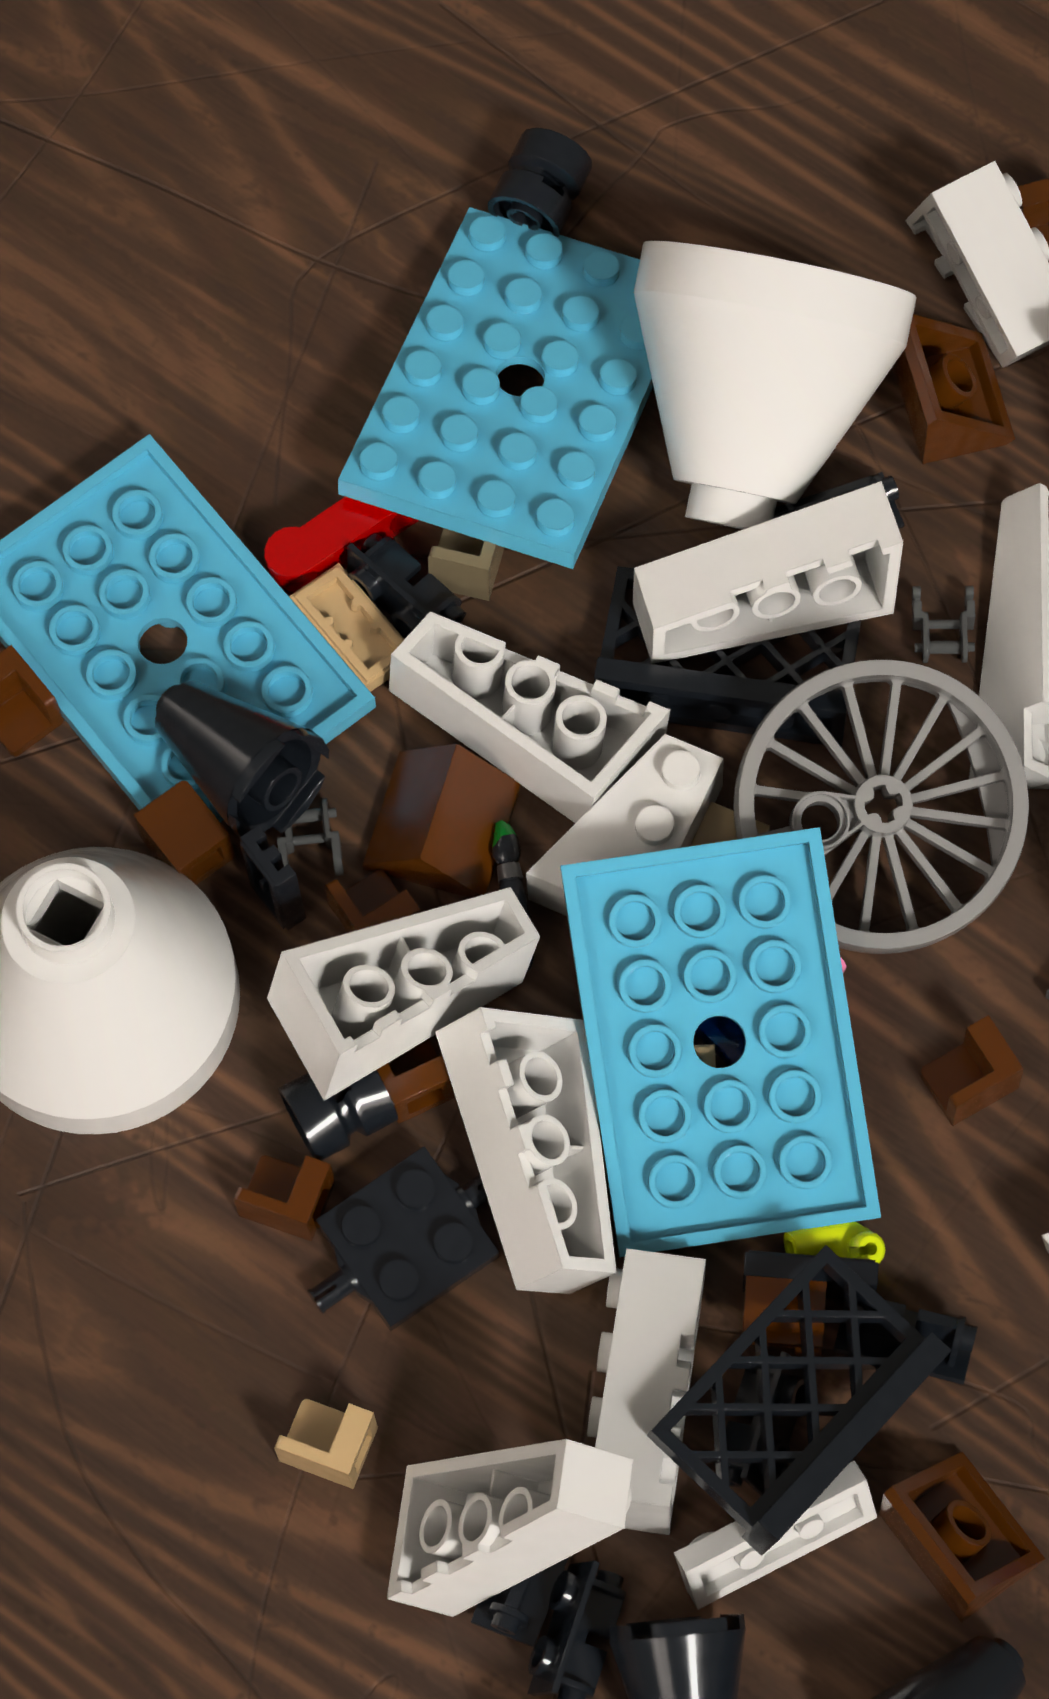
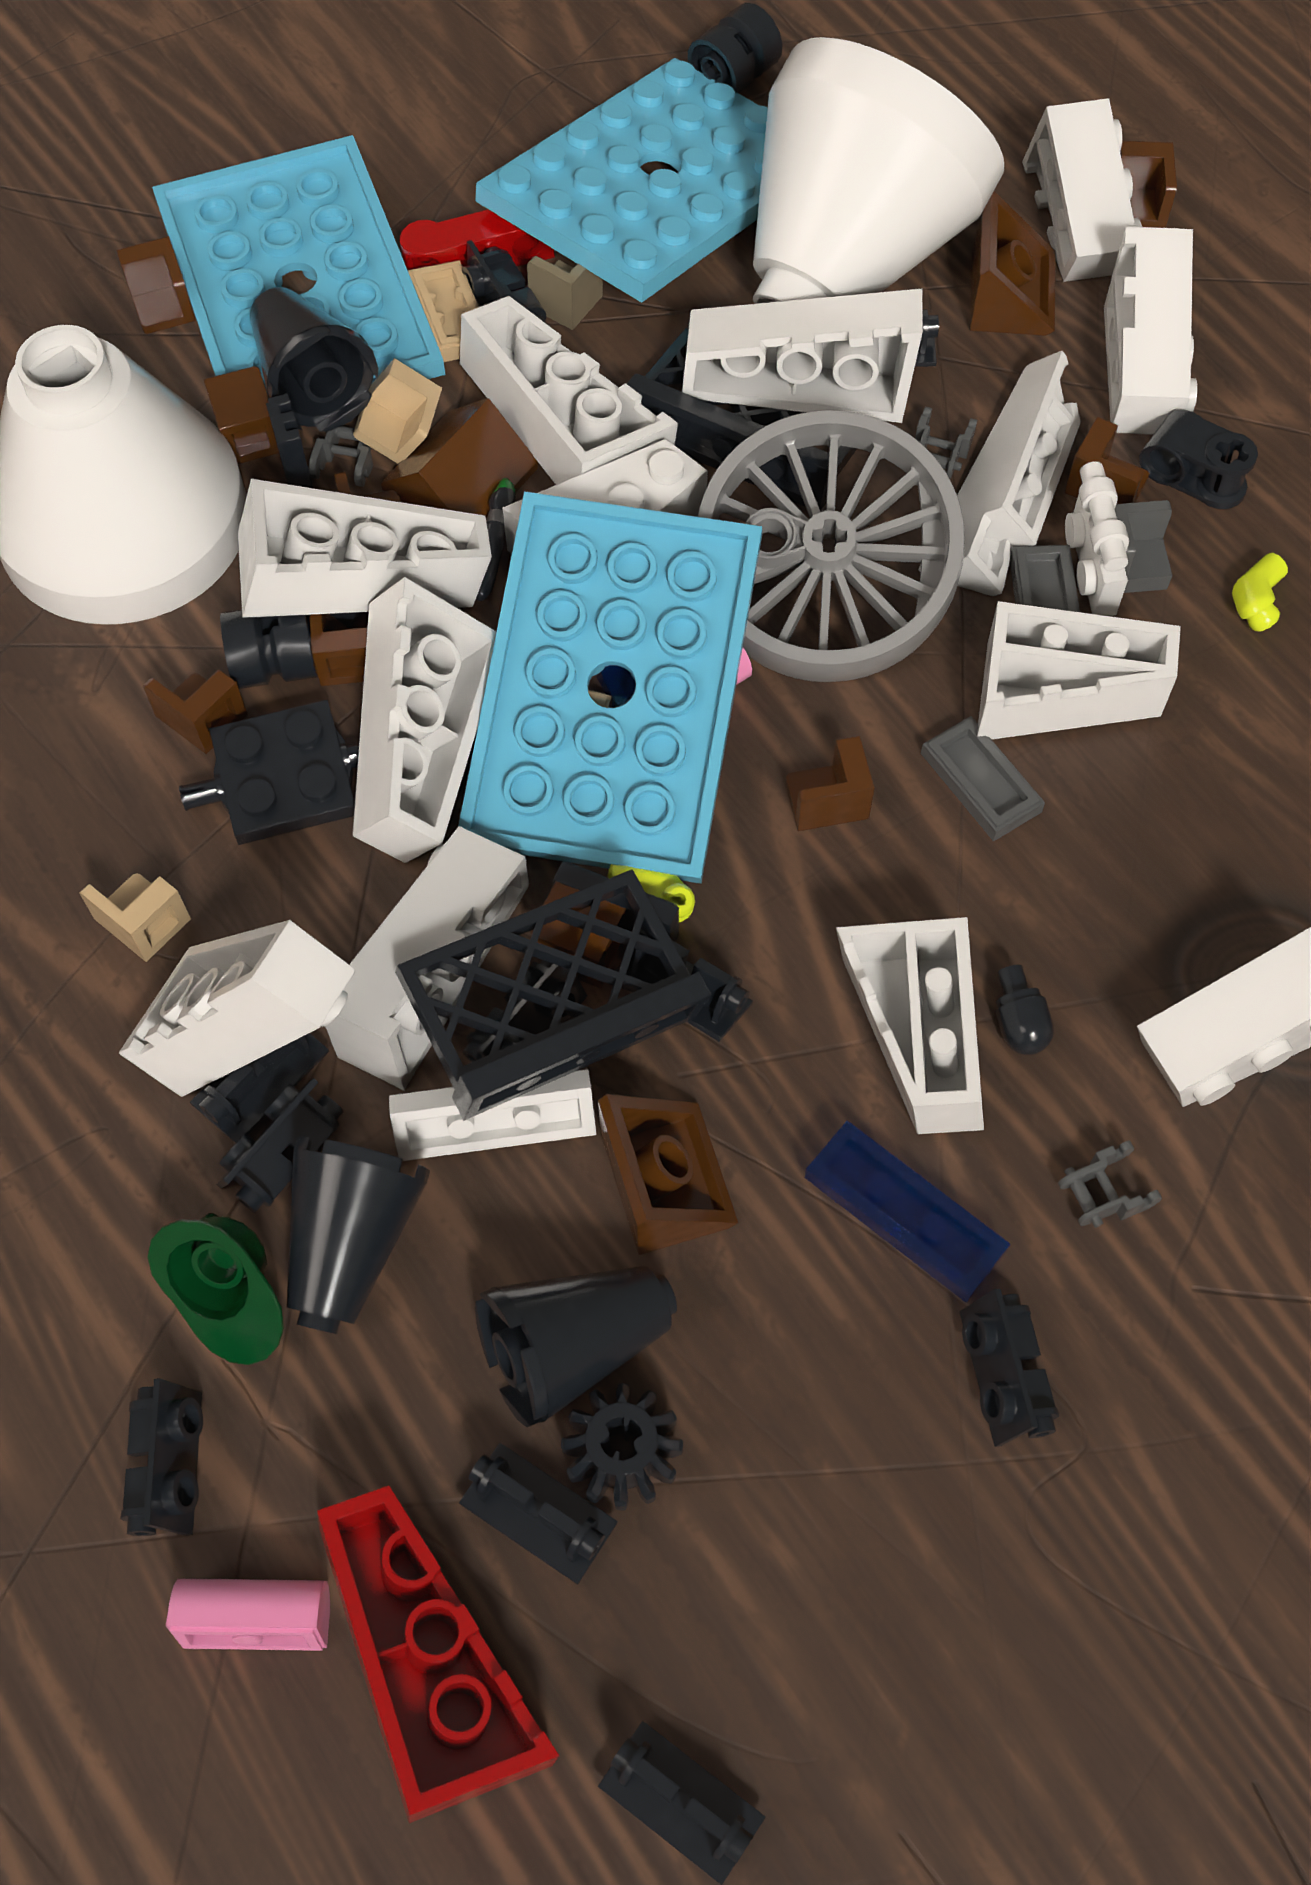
camera: 15 degrees right, 5 degrees down
(359, 783) = (398, 412): none -> tan panel

